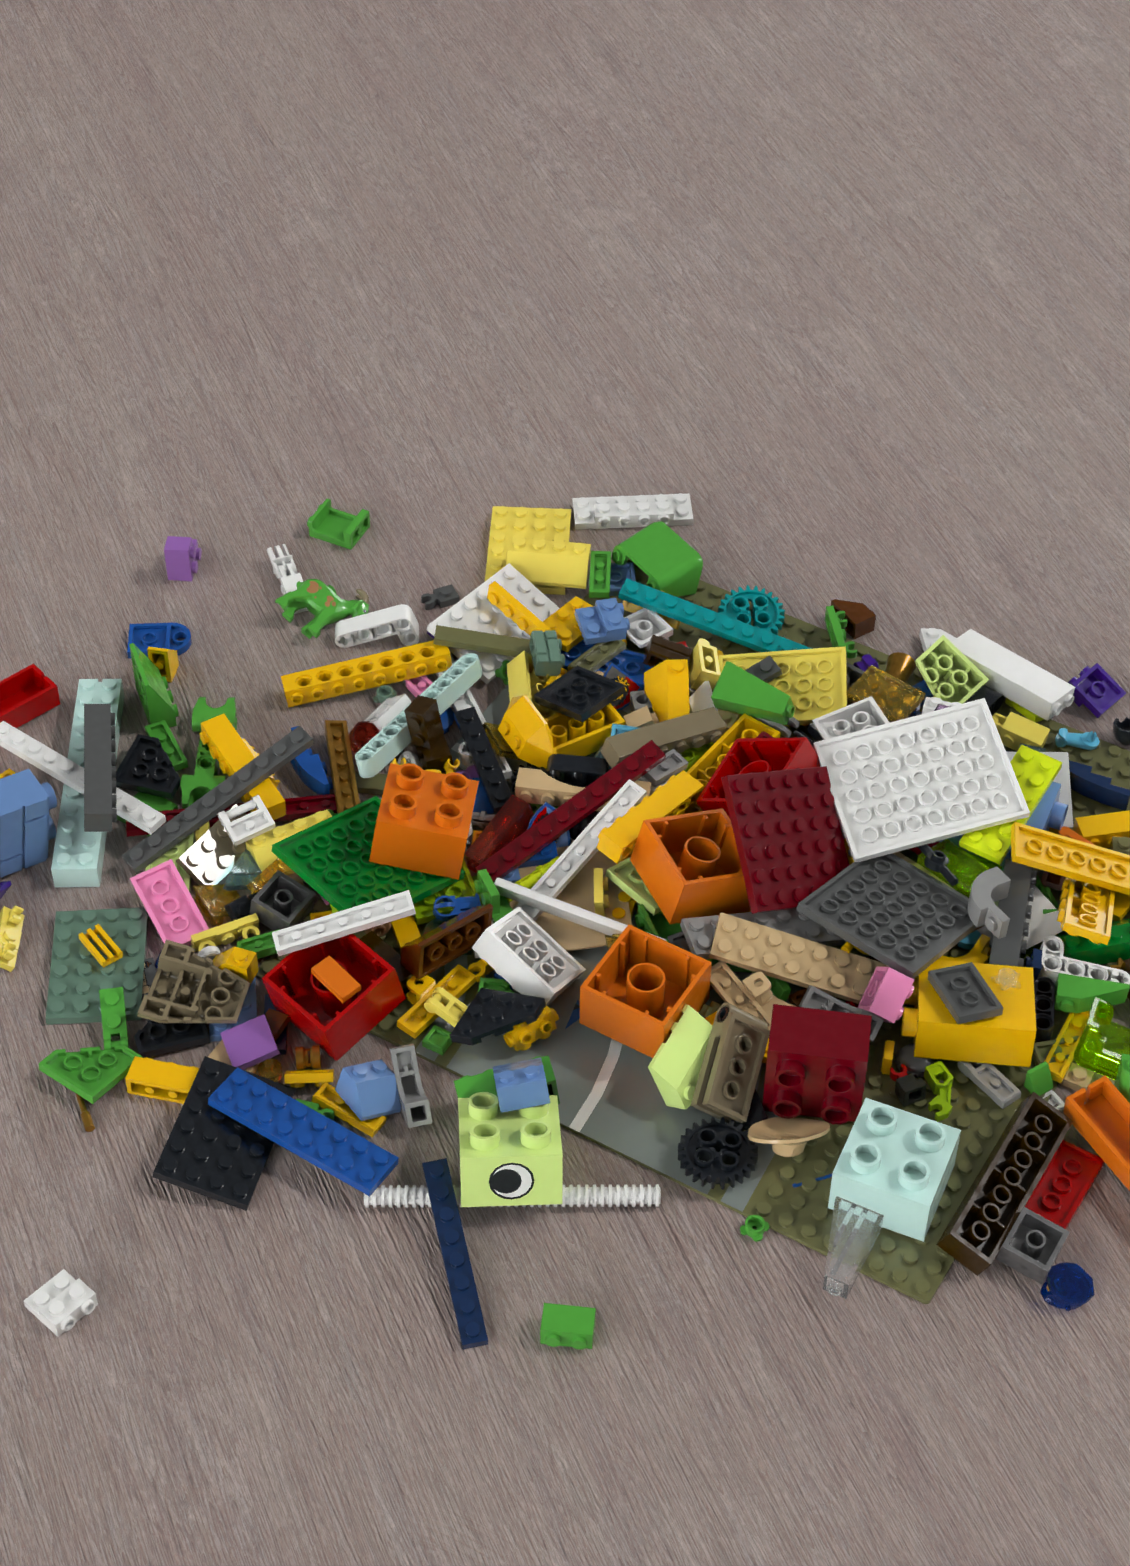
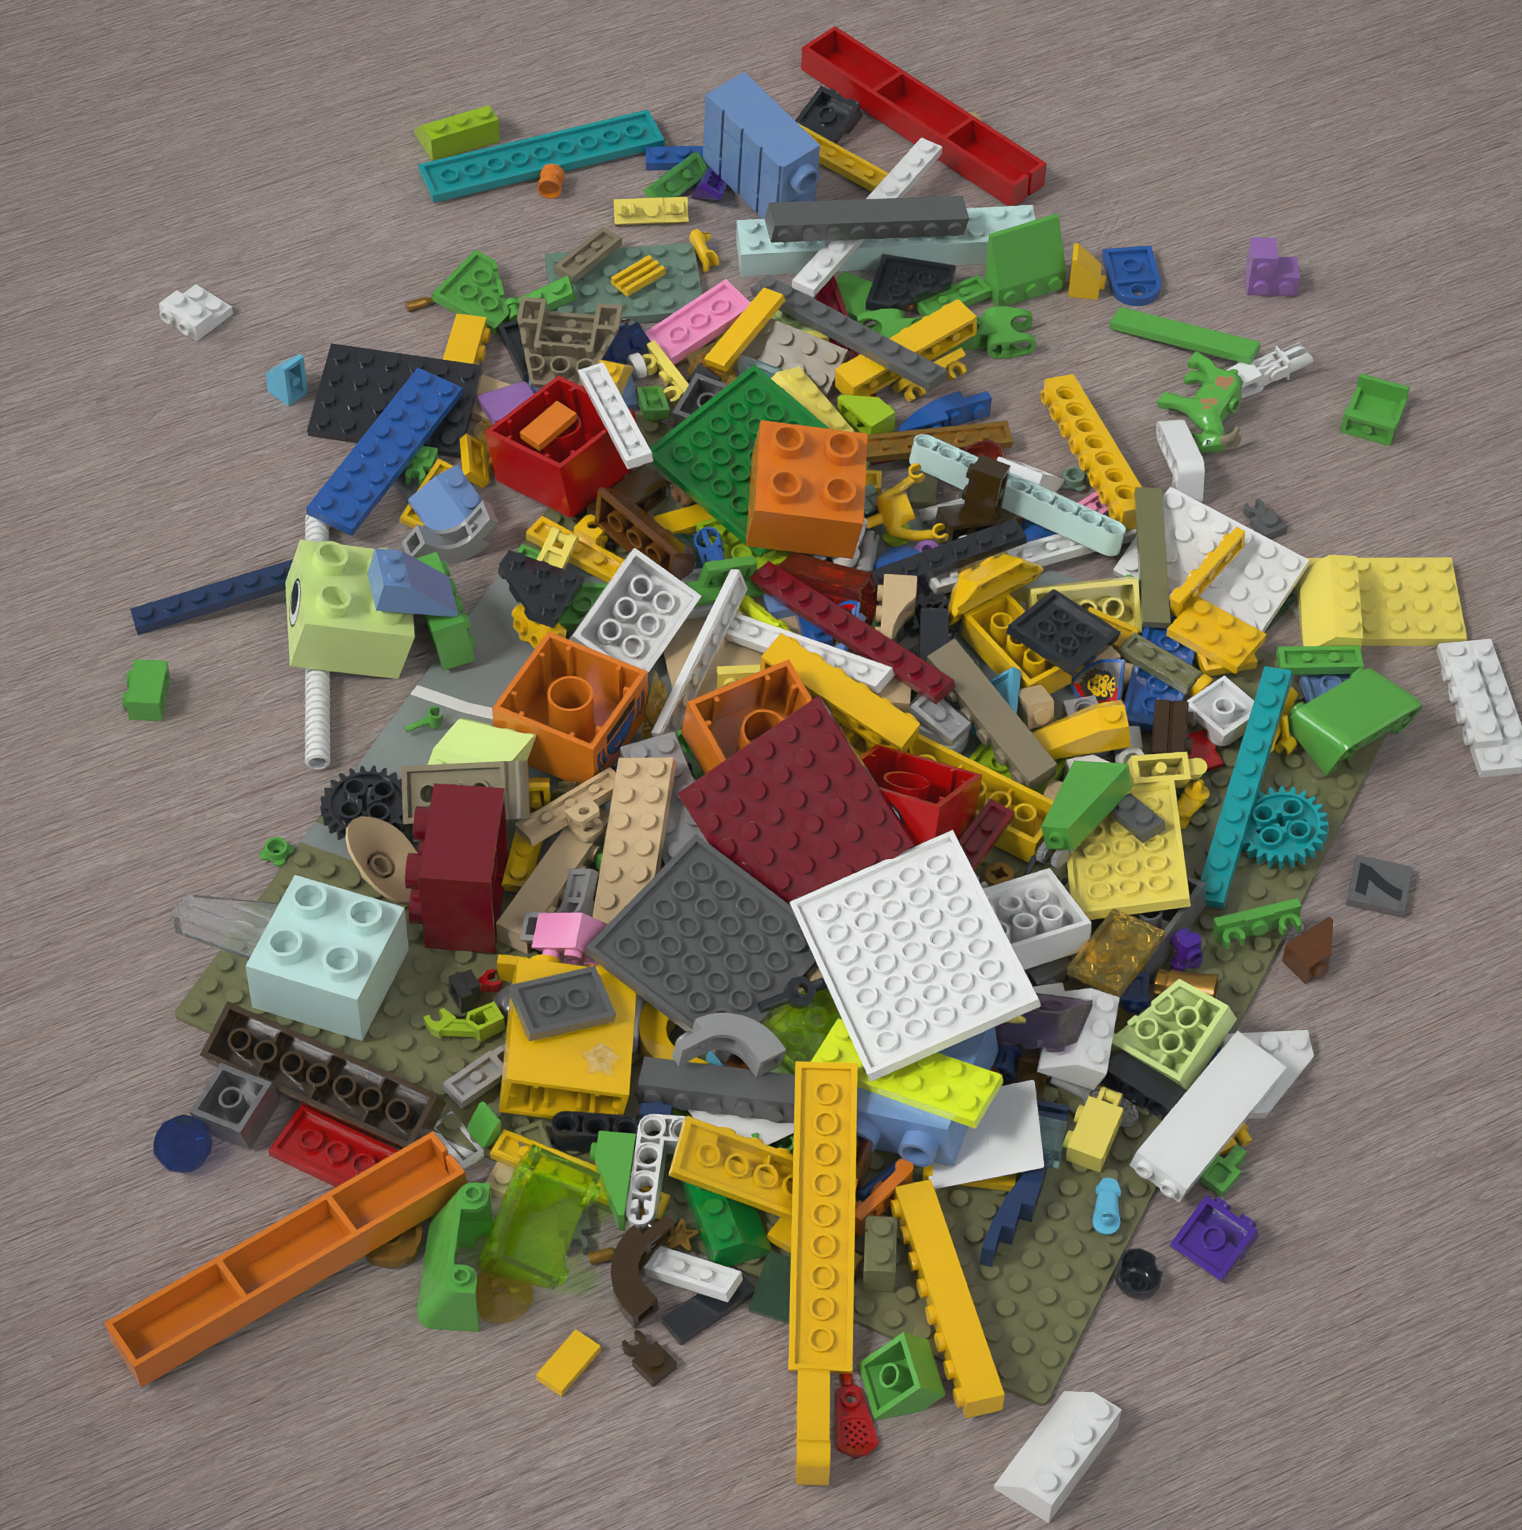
camera: 85 degrees right, 5 degrees up
(56, 905) = (706, 256): none -> yellow piece
(68, 978) = (588, 254): none -> dark tan plate
(183, 1214) = (288, 380): none -> medium azure slope
(199, 867) = (744, 329): none -> yellow tile
(242, 613) = (1185, 335): none -> bright green tile
(248, 825) = (808, 361): white plate -> none
(311, 798) = (867, 414): none -> lime slope
(546, 653) = (1135, 598): sand green brick -> none
(602, 622) = (1209, 654): medium blue plate -> none
(617, 1112) = (431, 720): none -> bright green hand
(791, 582) = (1379, 886): none -> flat silver tile

